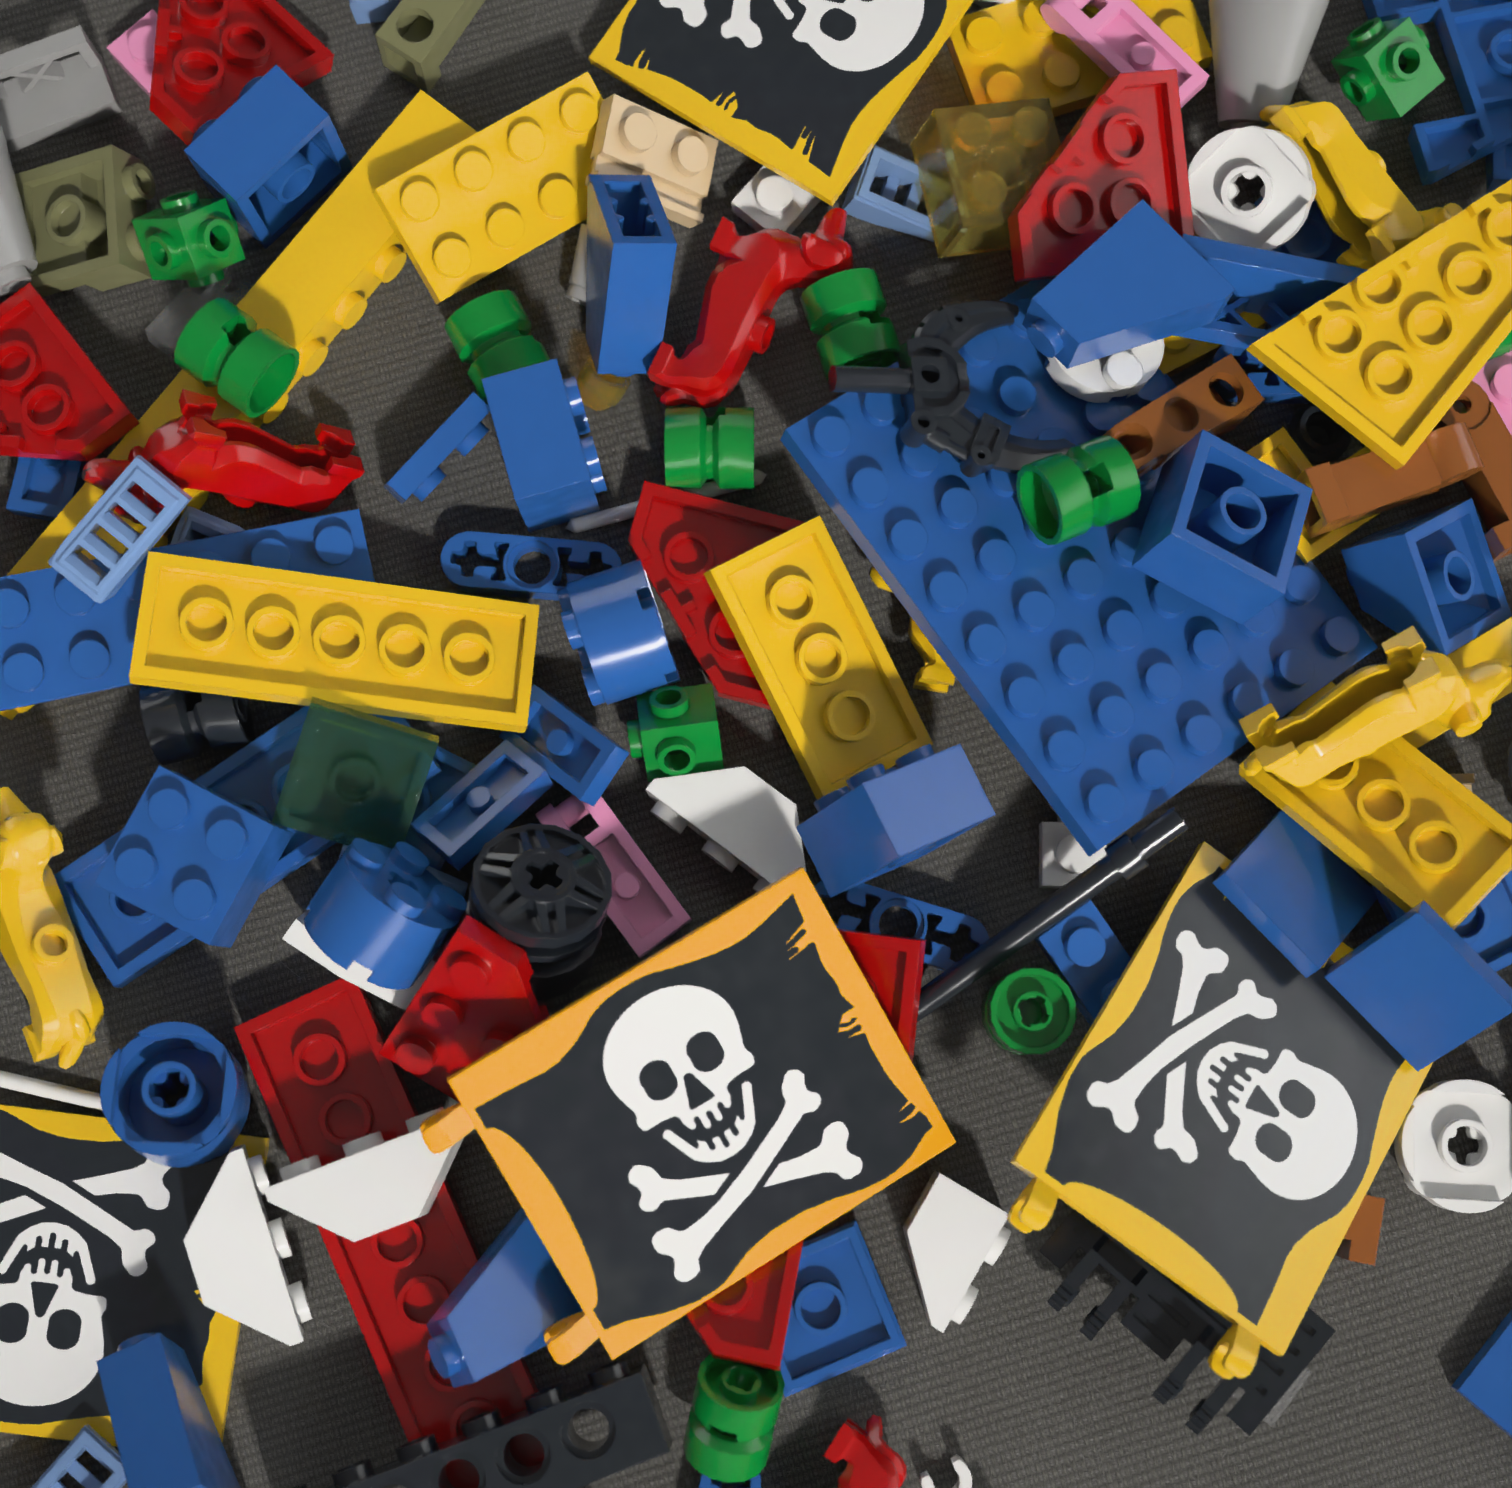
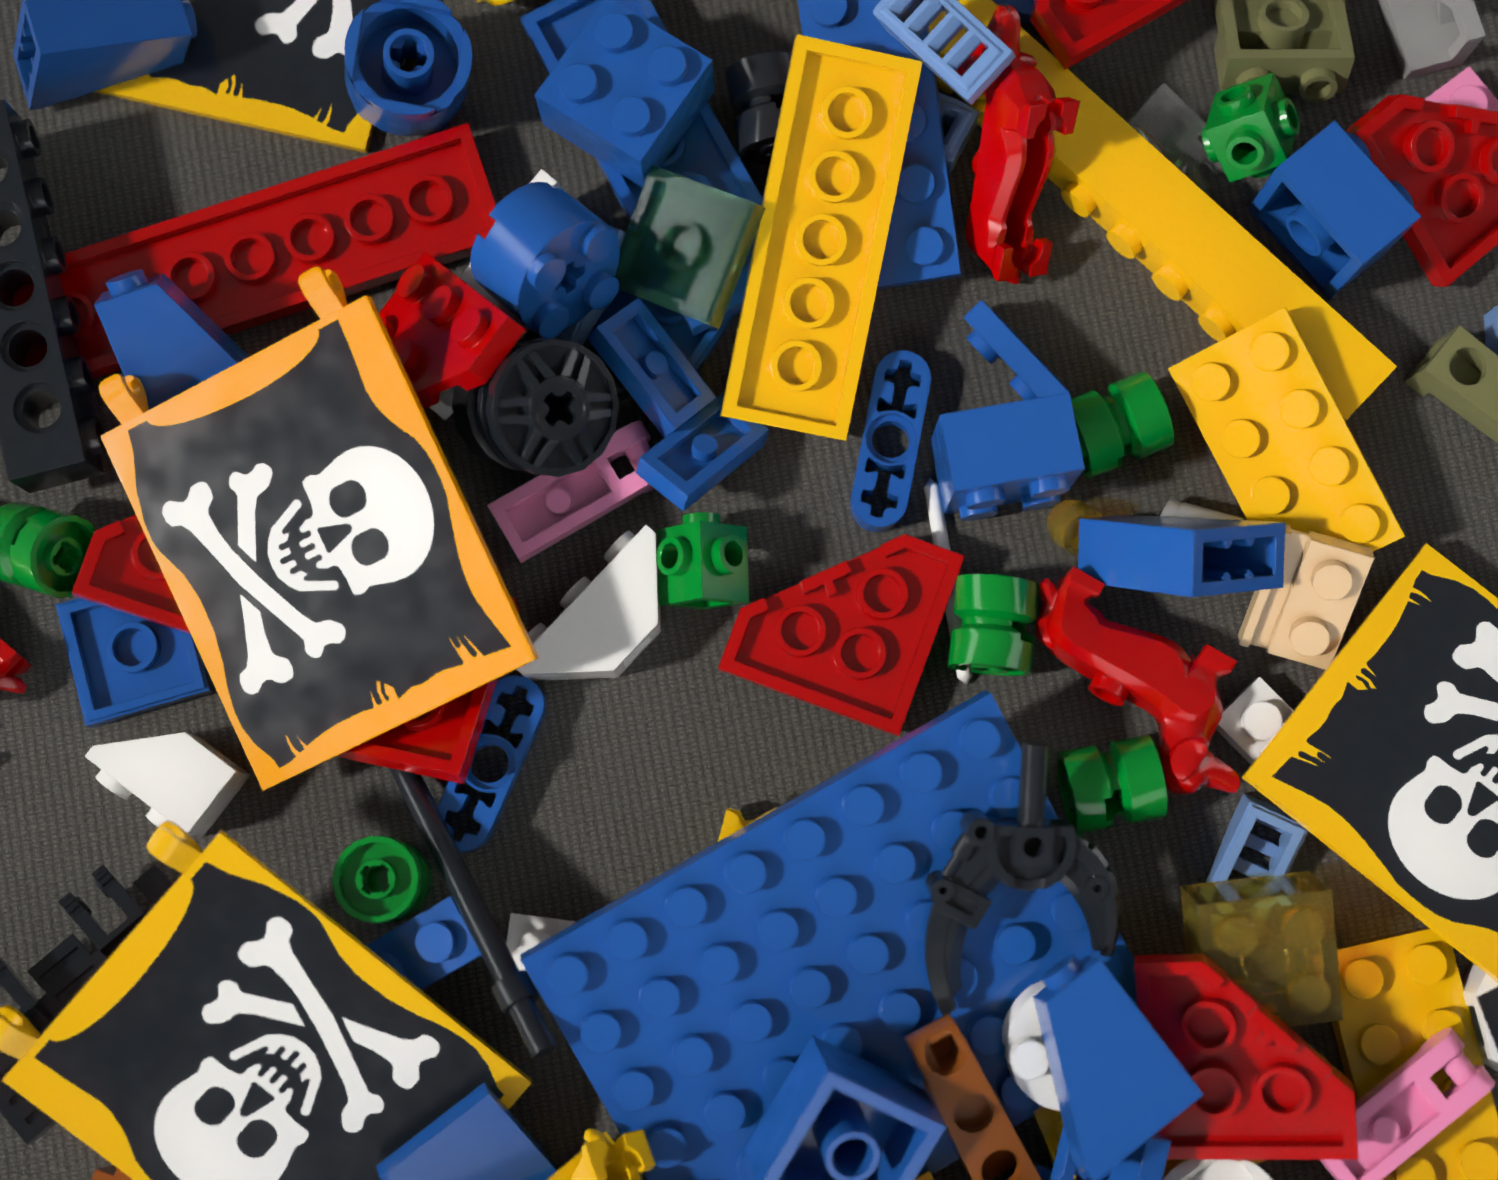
camera: 95 degrees right, 0 degrees up
(228, 351) = (1124, 151): green wheel -> none
(241, 1251) = (256, 115): white slope -> none
(370, 1187) = (293, 222): white slope -> none
(617, 633) = (805, 512): blue brick -> none
(817, 656) = (760, 710): yellow plate -> none
(893, 816) = (585, 763): blue brick -> none
(1078, 490) = (899, 998): green wheel -> none

